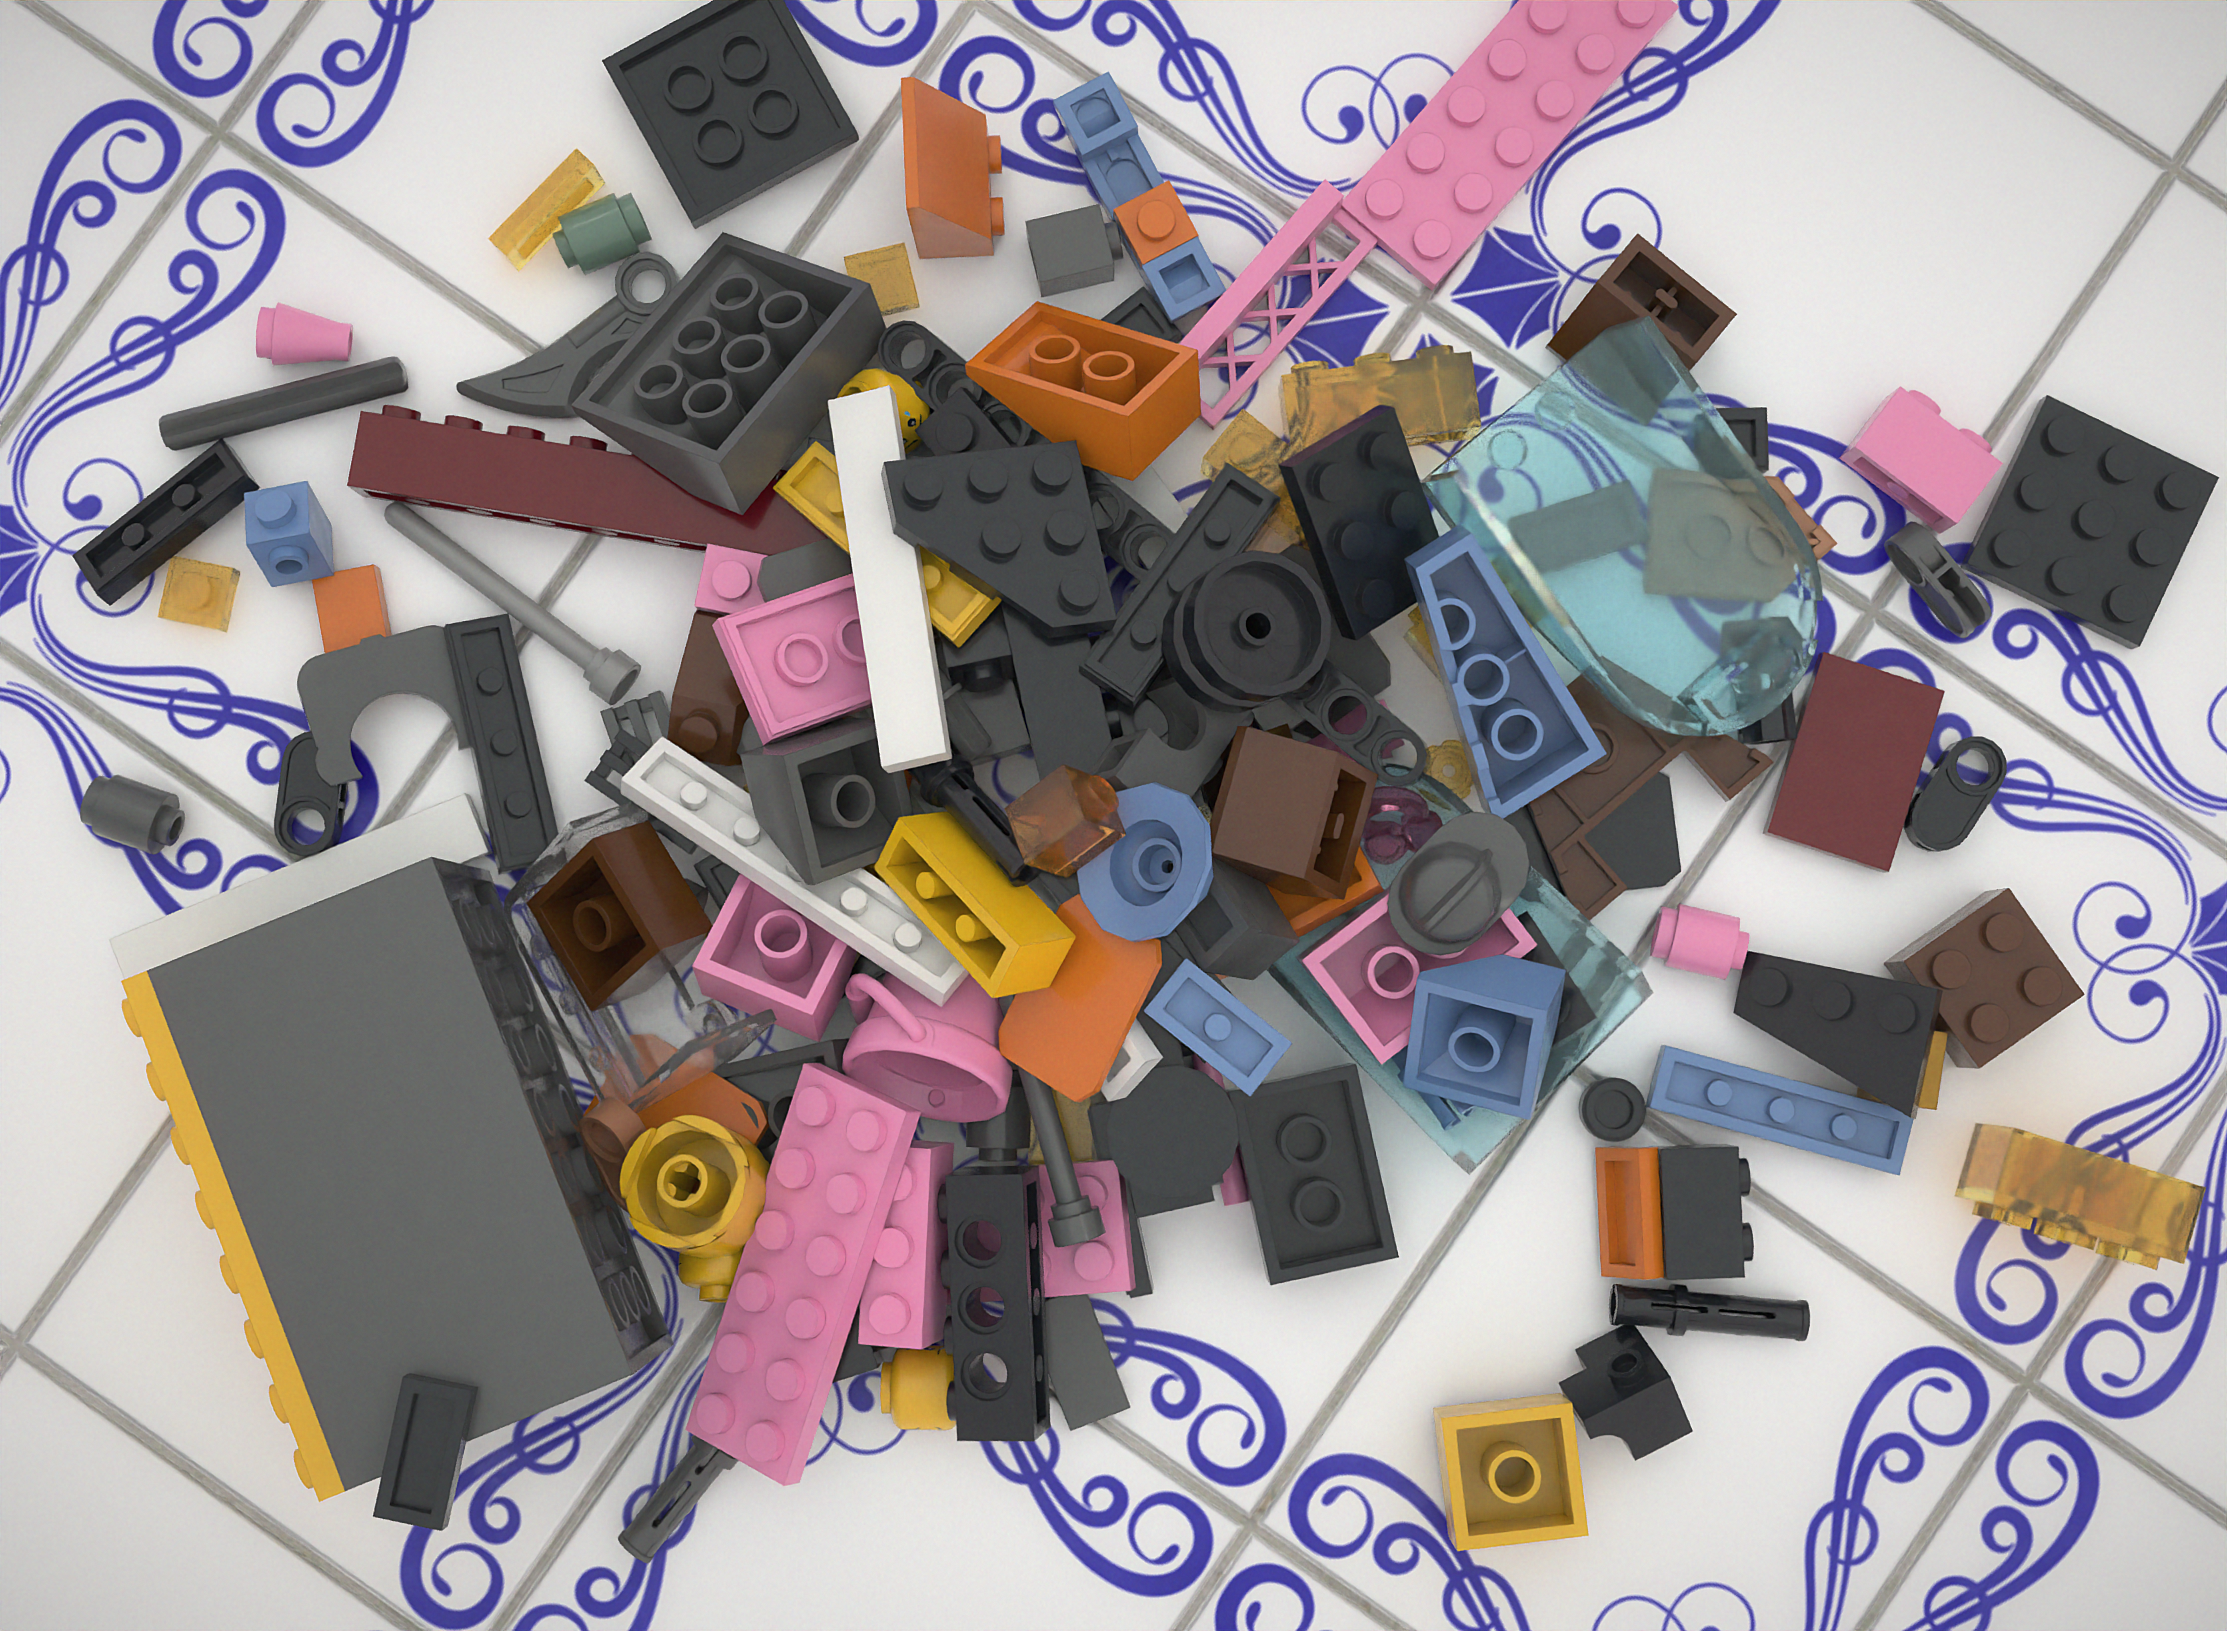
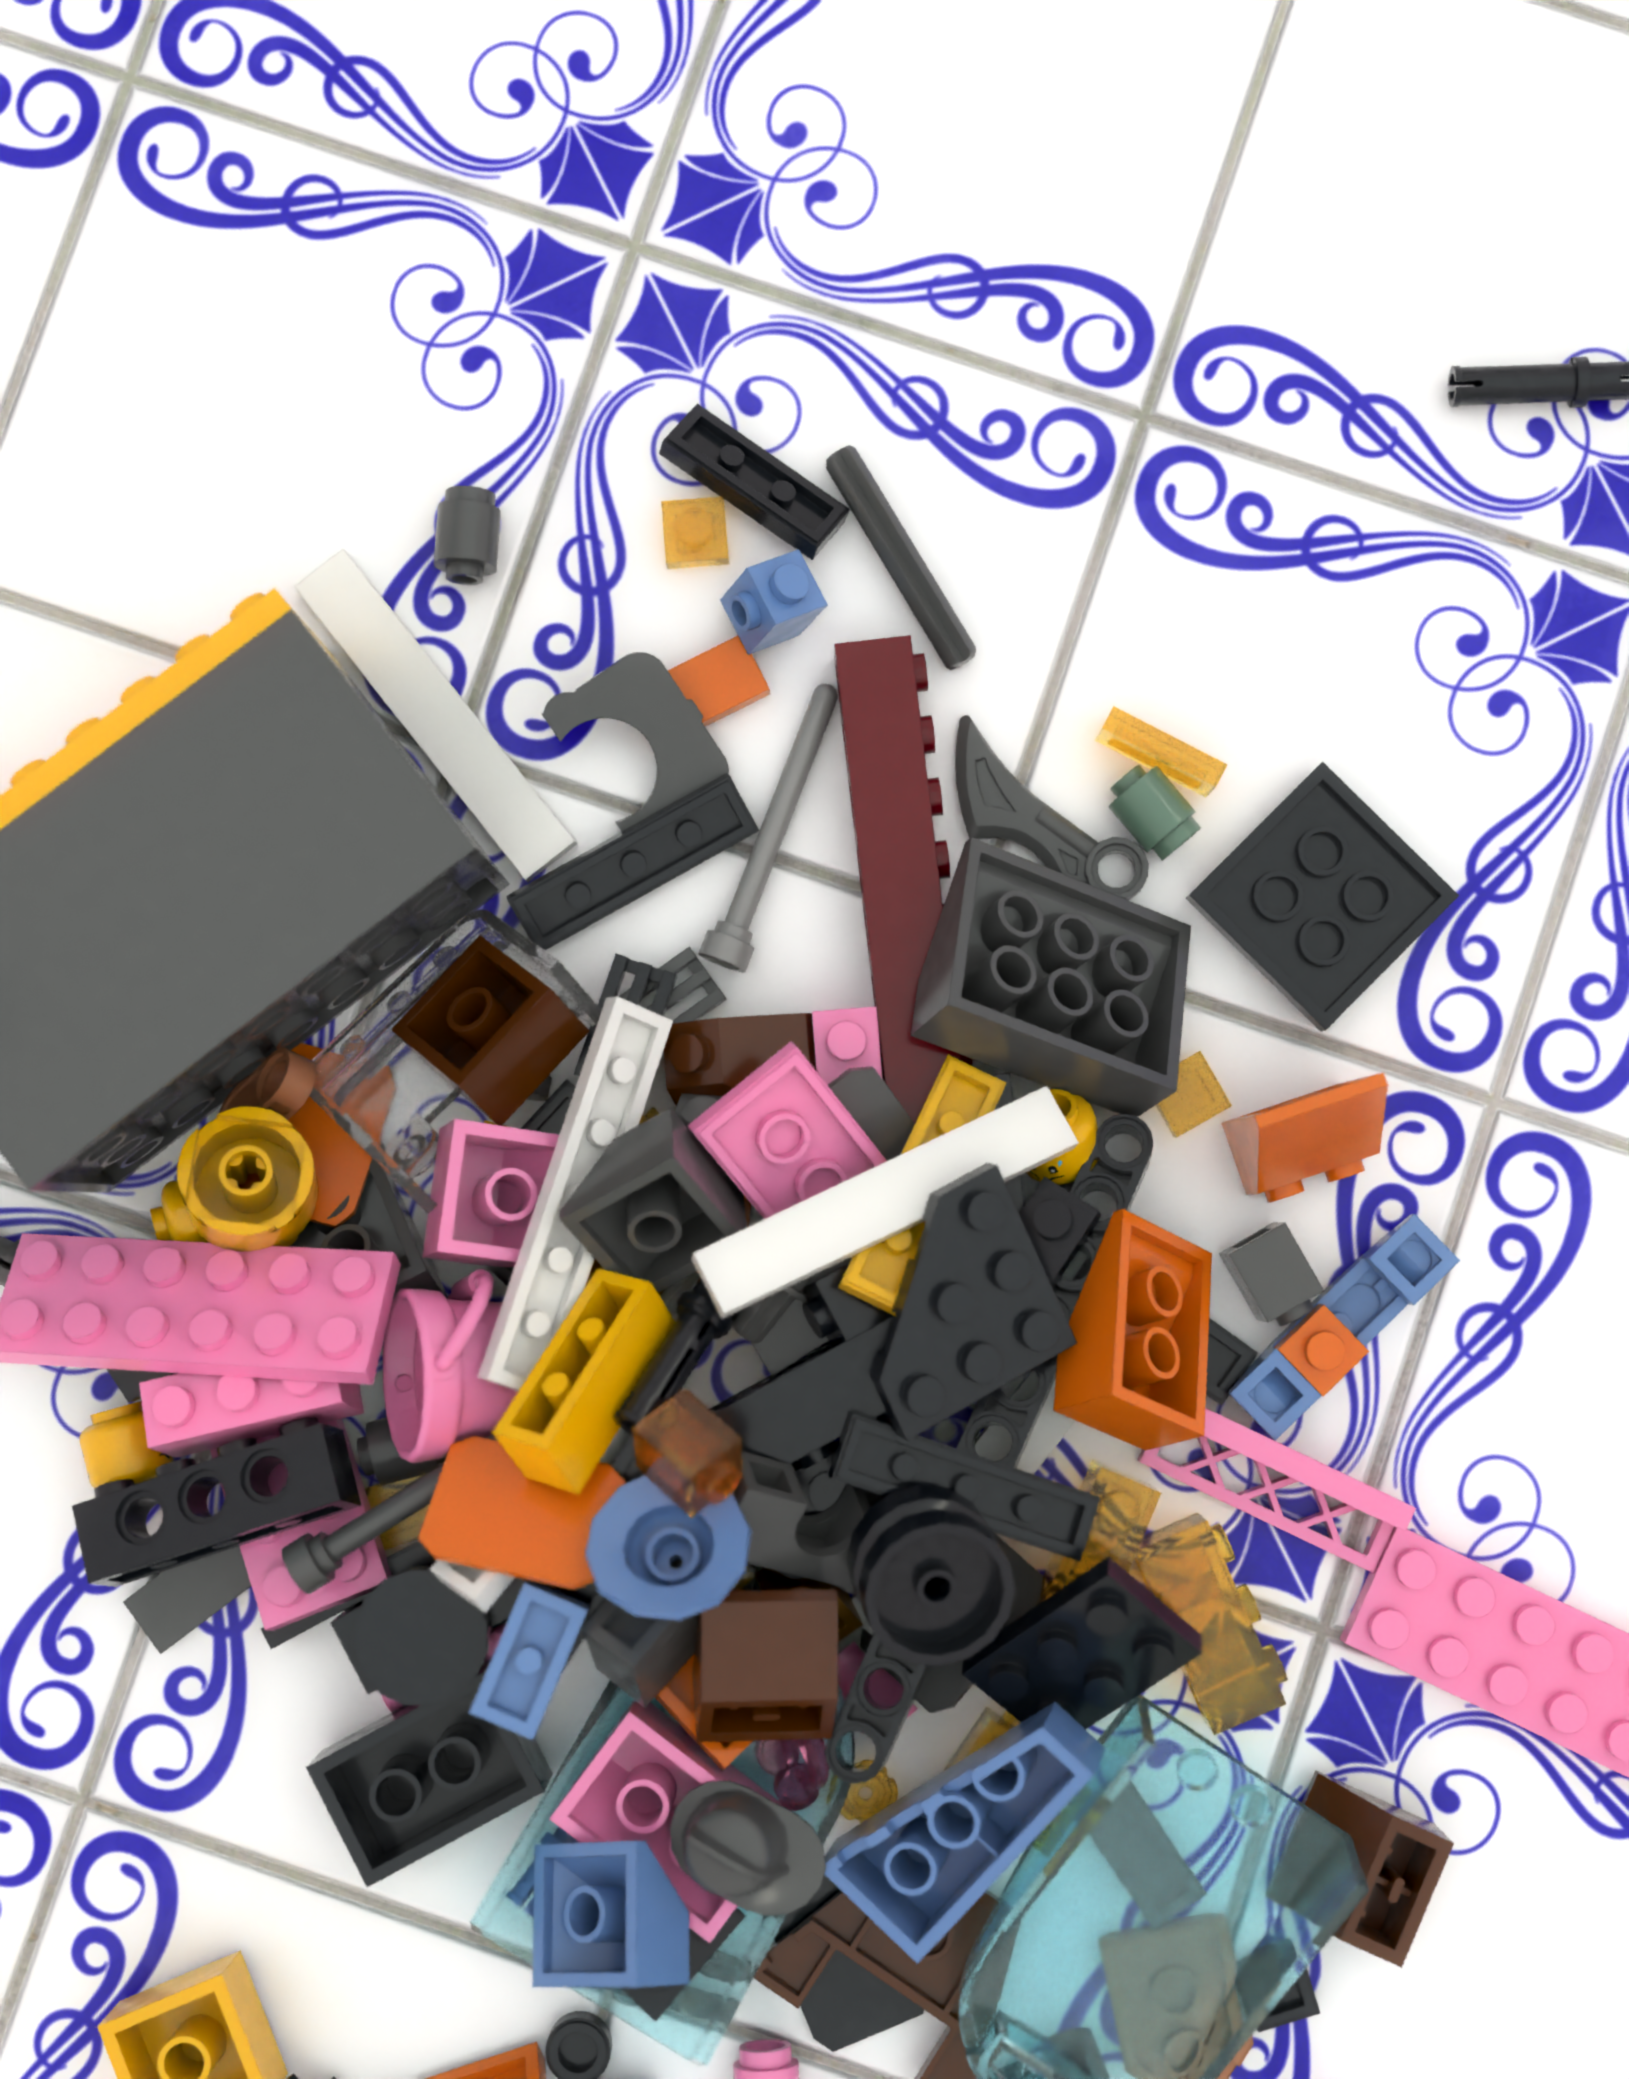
camera: 75 degrees right, 0 degrees up
(301, 337) = (968, 553): bright pink cone -> none
(302, 790) = (535, 685): black piece -> none

